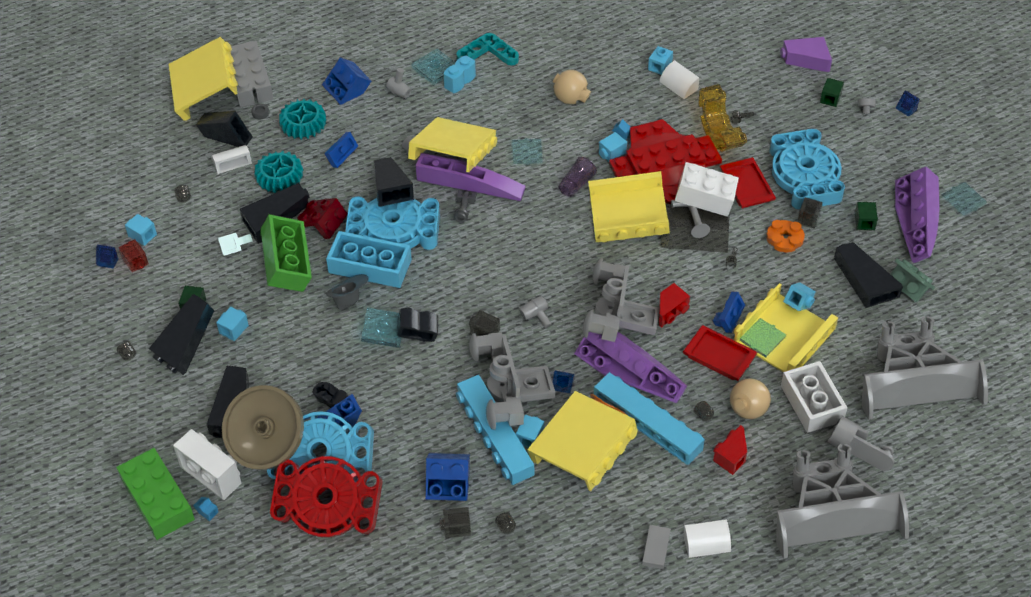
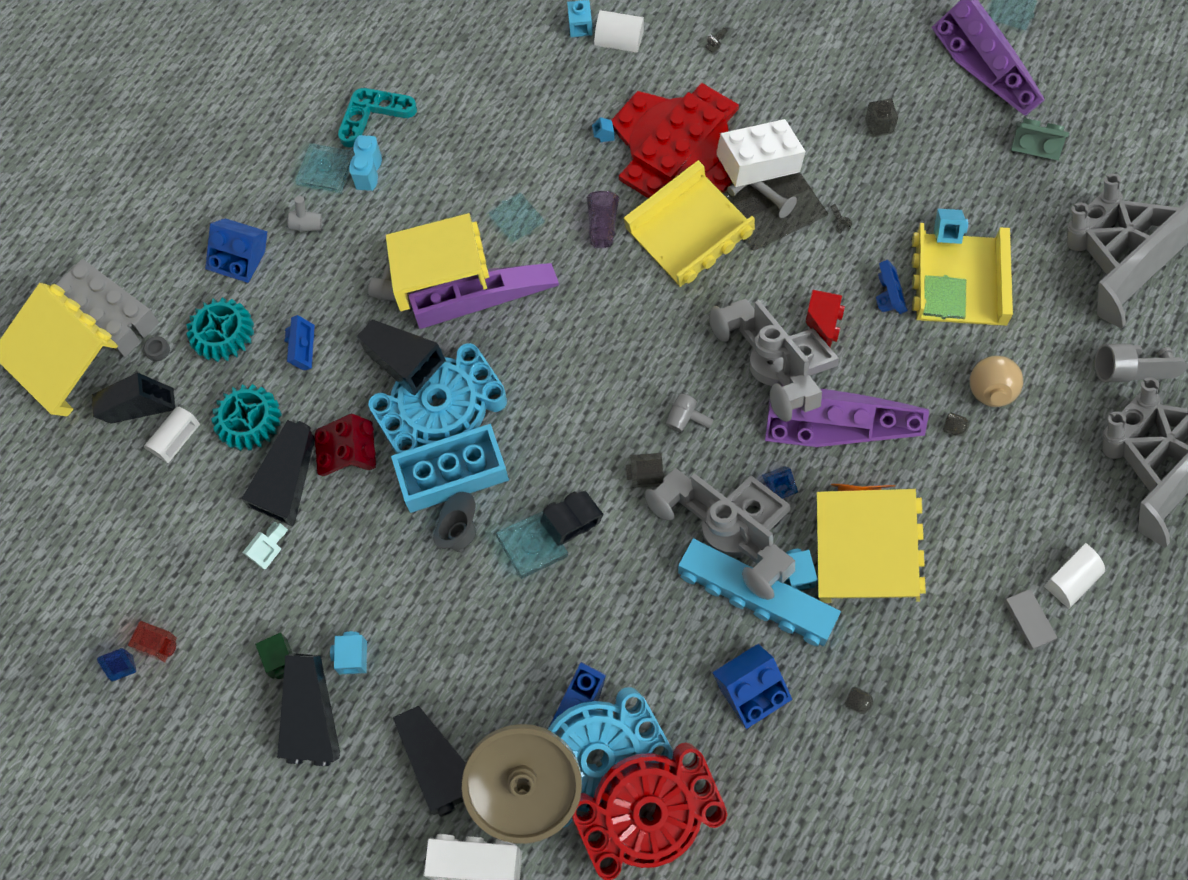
camera: 30 degrees left, 15 degrees up
(126, 351) = (245, 773): clear smoke piece -> none
(141, 229) = (133, 599): medium azure brick -> none
(182, 193) = (147, 518): clear smoke piece -> none
(285, 253) = (346, 523): bright green brick -> none
(328, 394) = (530, 672): black piece -> none
(456, 522) = (807, 737): clear smoke brick -> none
(461, 213) = (507, 342): dark grey hinge -> none
(571, 87) = (508, 108): tan brick -> none
(612, 147) = (611, 158): medium azure brick -> none
(651, 419) = (908, 470): medium azure brick -> none
(717, 122) = (704, 65): clear yellow brick -> none
(719, 353) = (916, 343): red piece -> none
(732, 452) = (1023, 453): red slope -> none
(751, 185) = (777, 105): red piece -> none
(776, 238) = (877, 148): orange plate -> none
(806, 167) = (816, 50): medium azure piece -> none
(813, 396) = (1055, 337): white brick -> none
(866, 216) = (938, 87): dark green brick -> none
(866, 276) = (991, 159): black slope -> none

